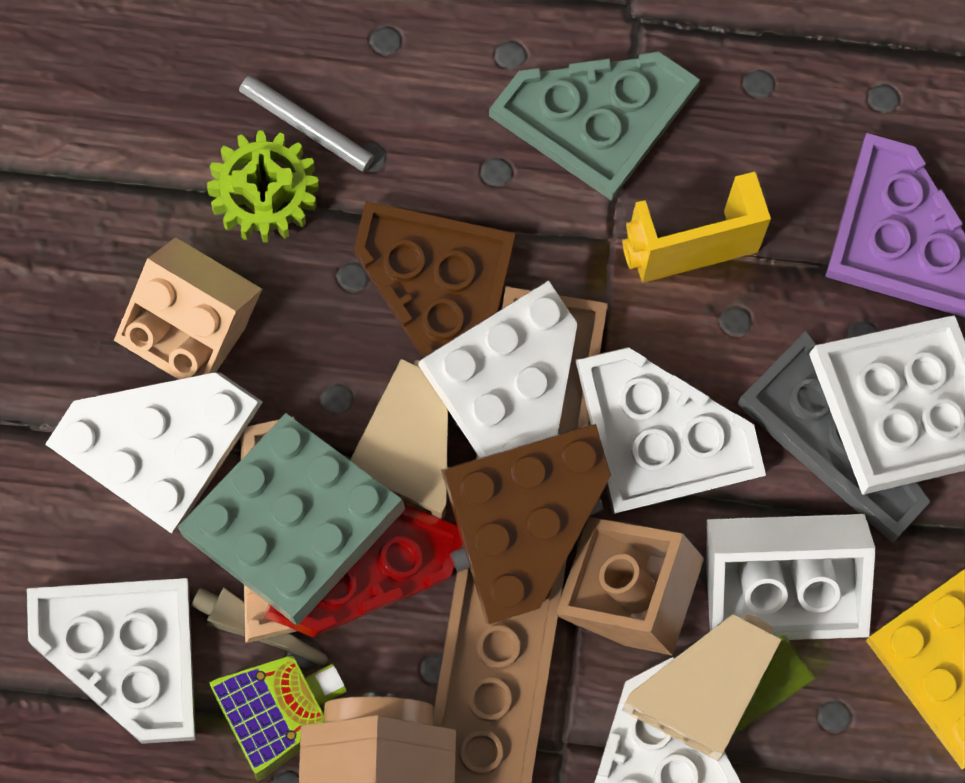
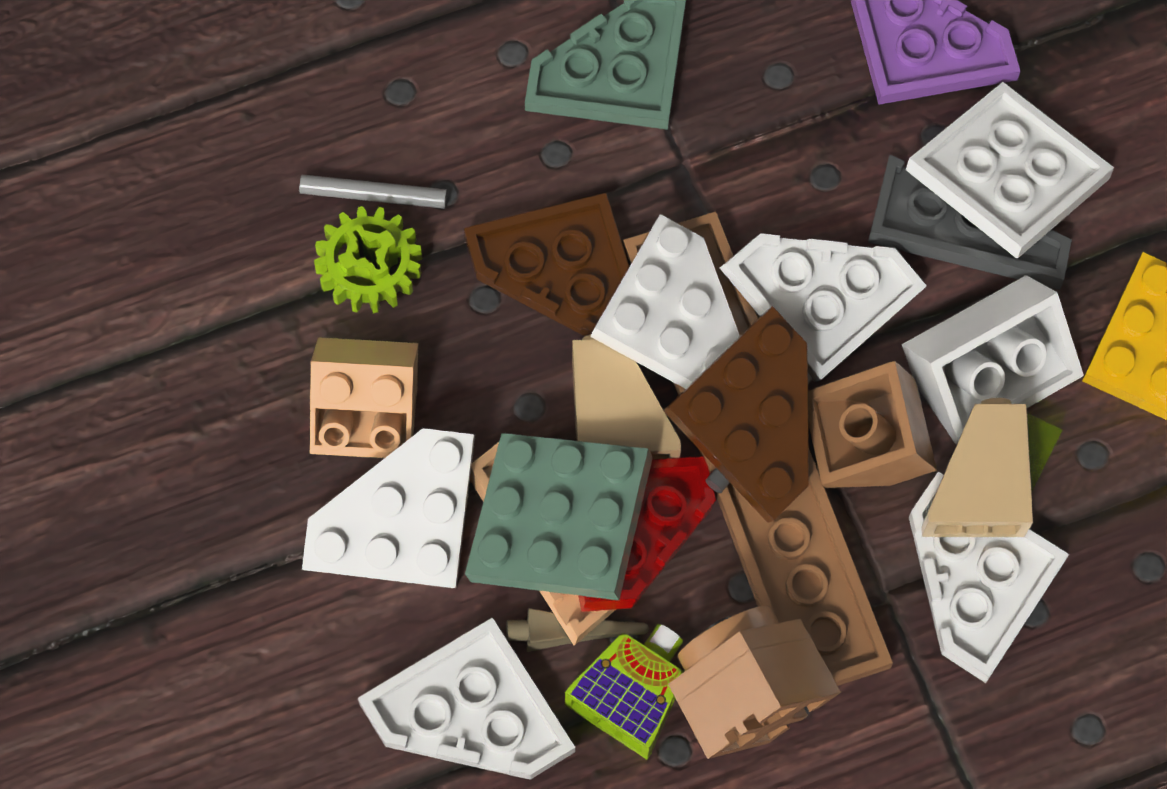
camera: 25 degrees left, 5 degrees down
(702, 246) = (791, 92): yellow panel -> none

